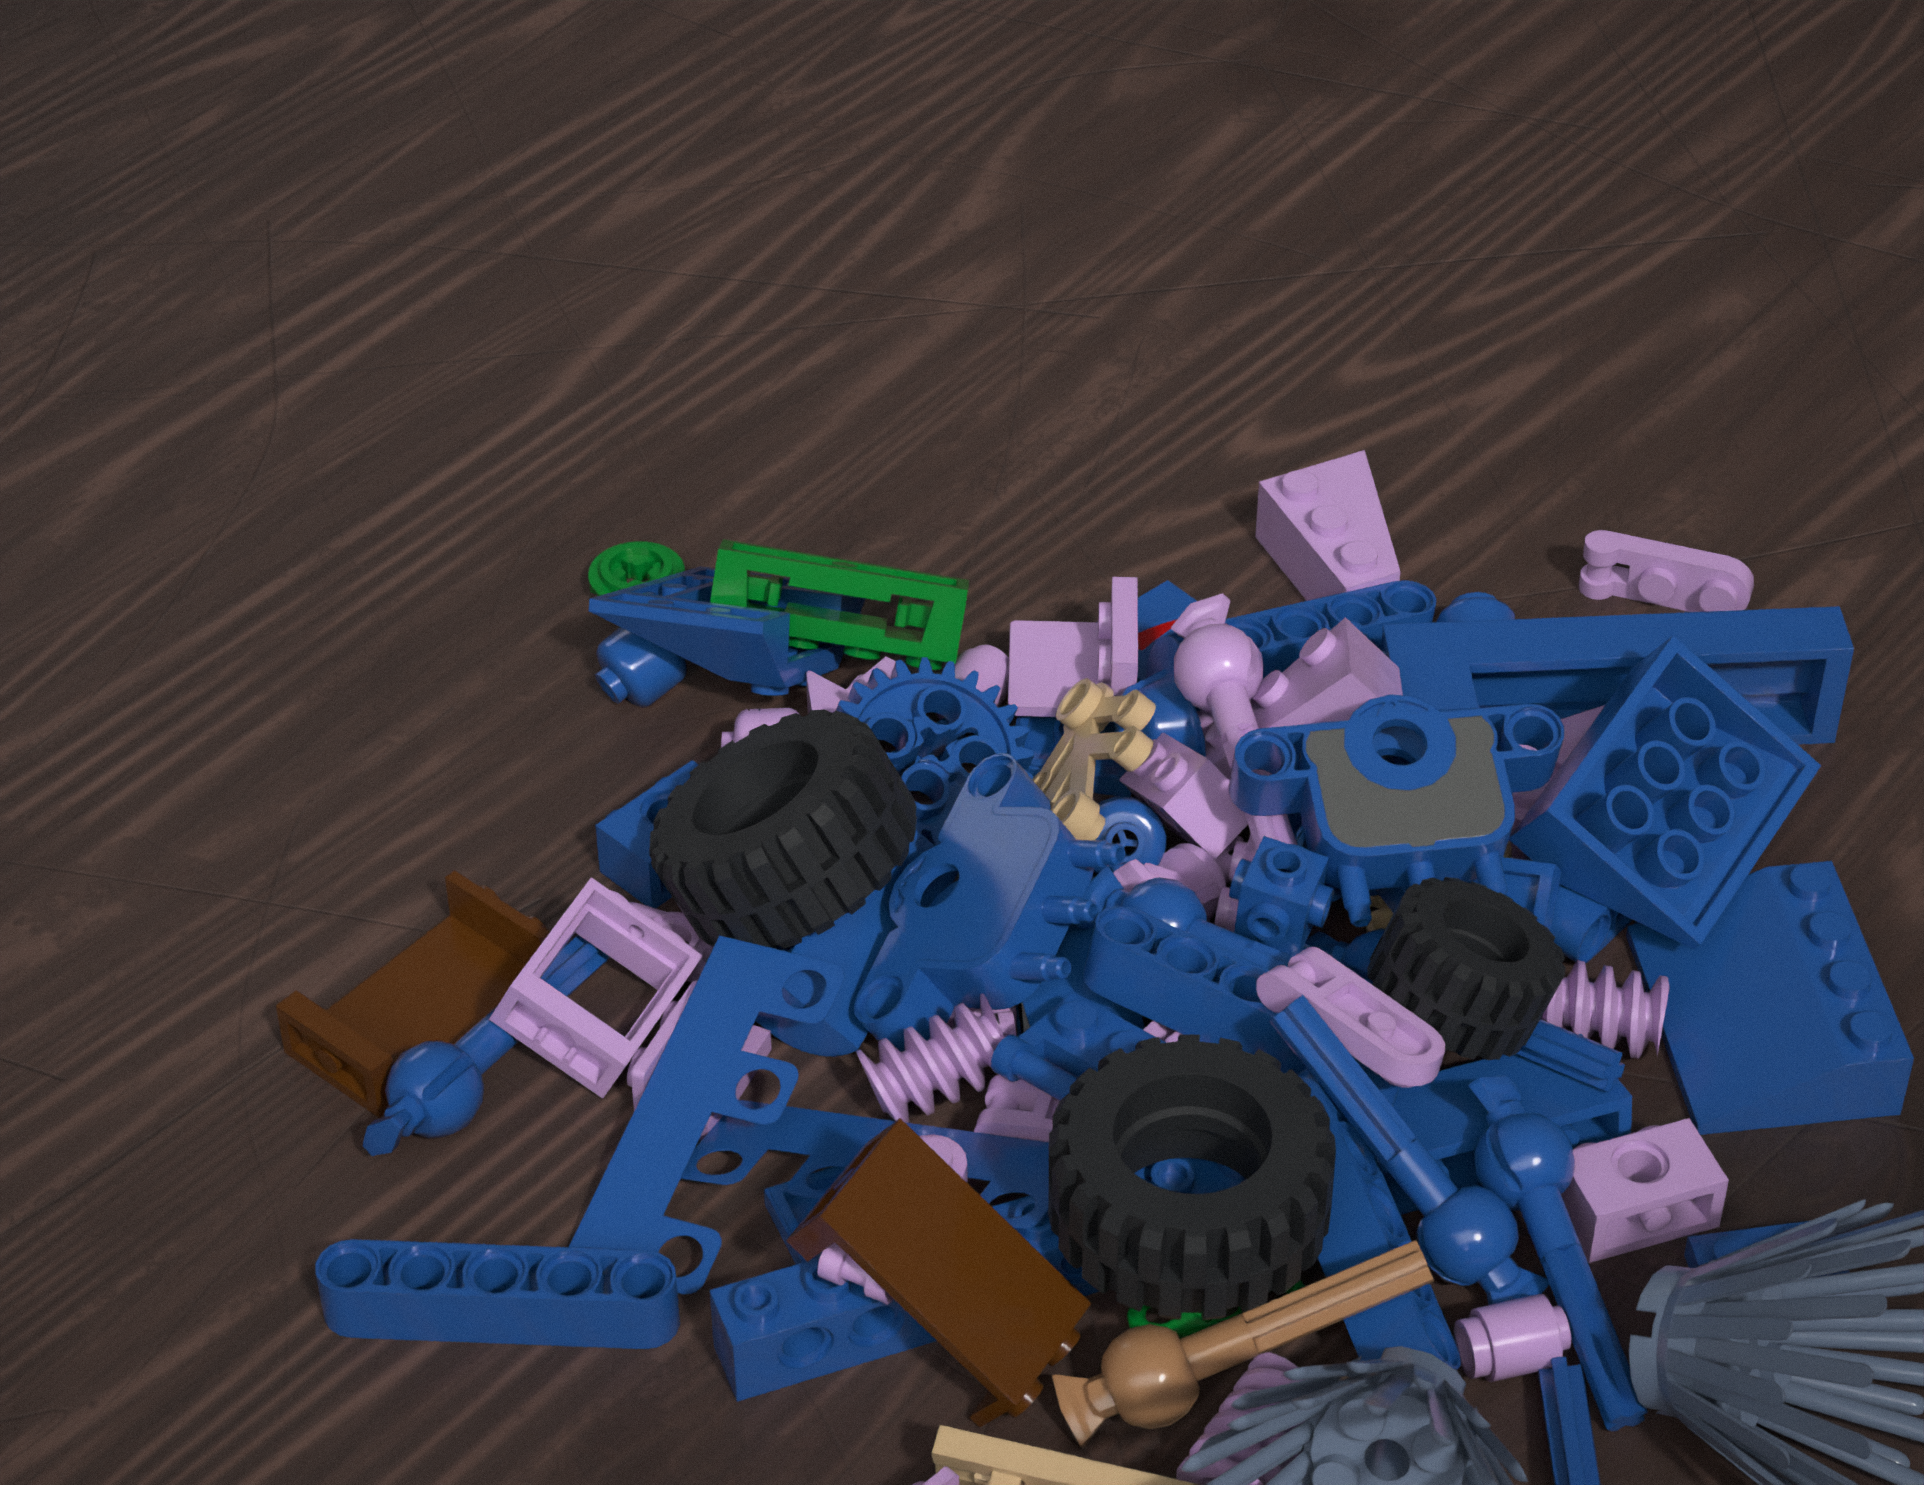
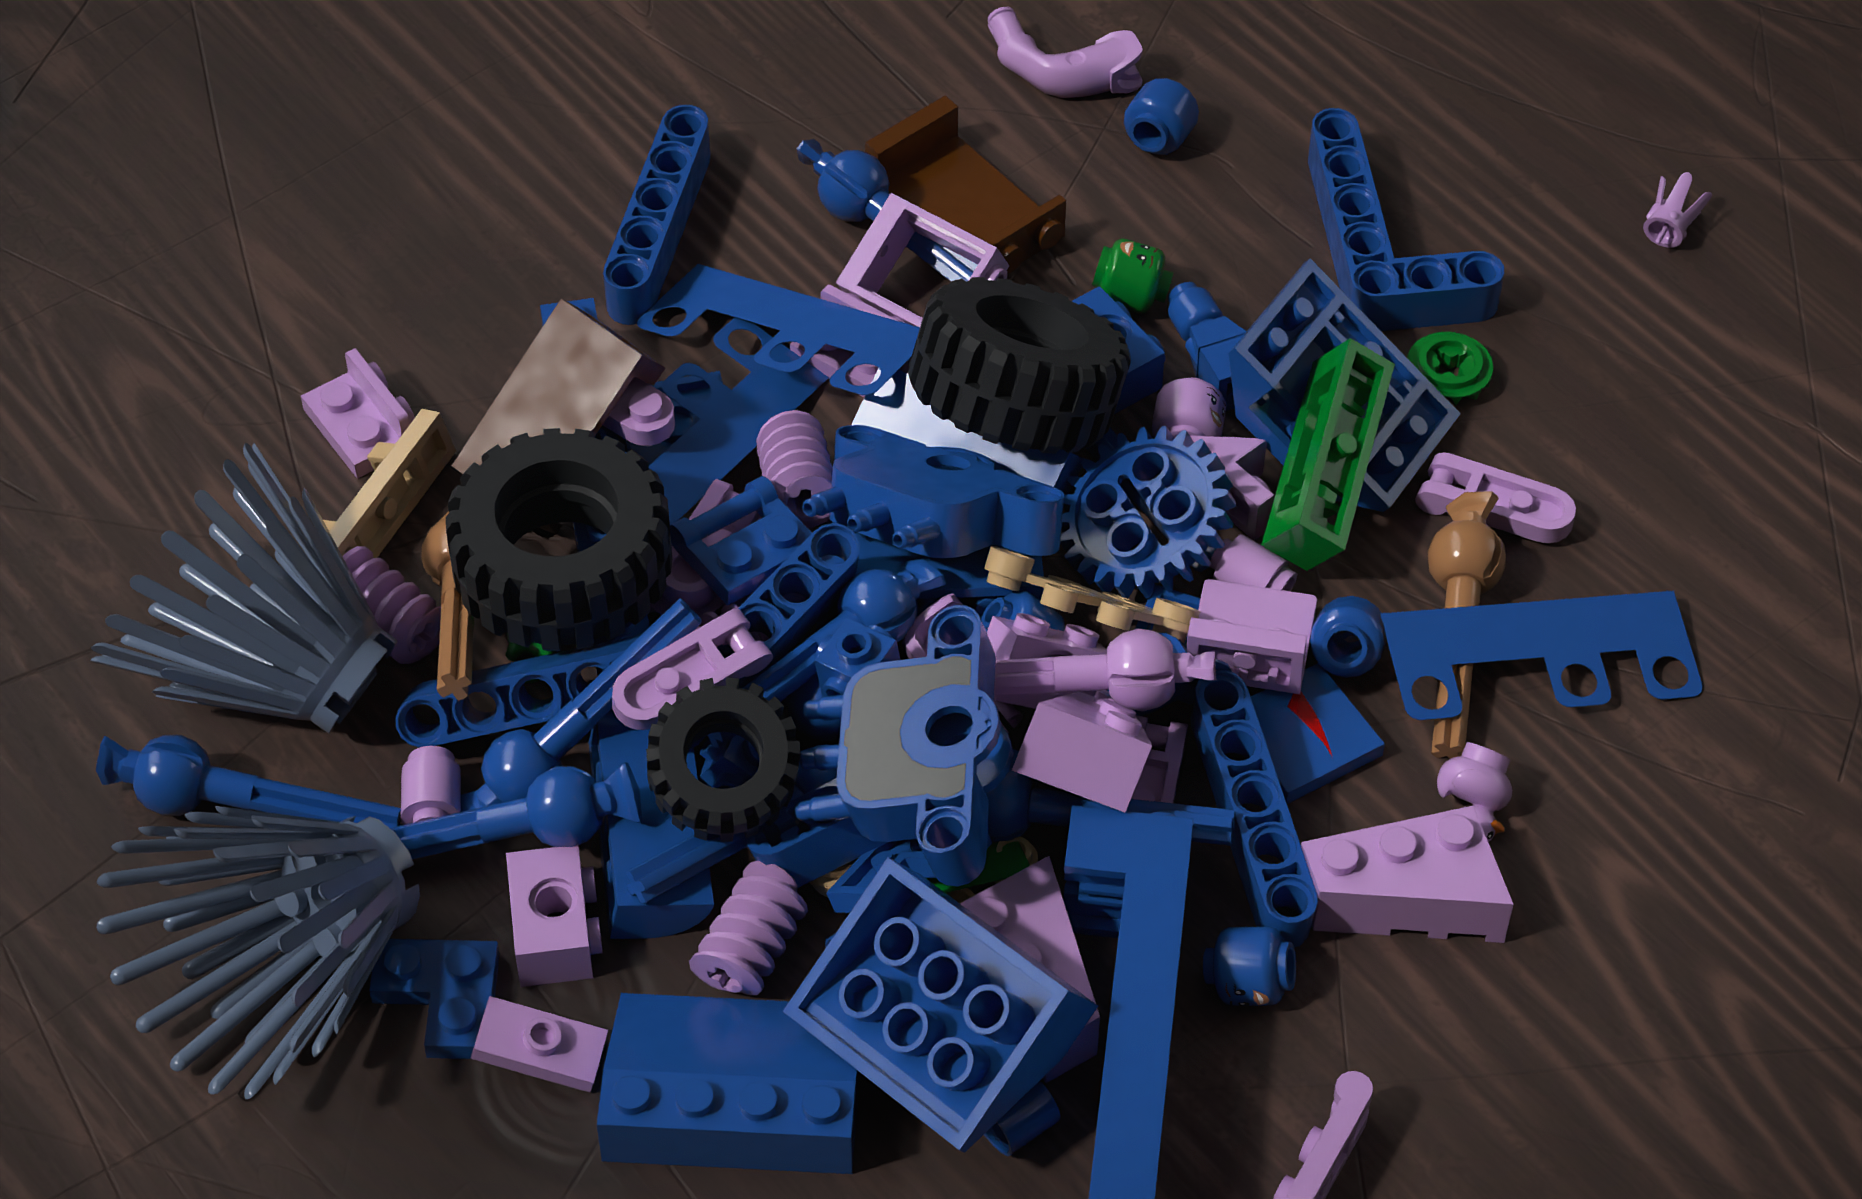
camera: 100 degrees right, 10 degrees up
(184, 892) = (1077, 73): none -> lavender piece
(275, 825) = (1161, 116): none -> blue head
(401, 433) = (1665, 220): none -> lavender piece
(443, 650) = (1386, 288): none -> blue beam
(551, 821) = (1133, 274): none -> green head
(646, 745) = (1207, 335): none -> blue piece
(826, 512) = (1523, 504): none -> lavender plate
(926, 530) = (1465, 562): none -> medium nougat piece
(1007, 484) = (1554, 630): none -> blue piece
(1051, 593) = (1332, 642): none -> blue head
(1203, 513) = (1480, 780): none -> lavender animal
(1802, 1168) = (539, 1044): none -> lavender plate

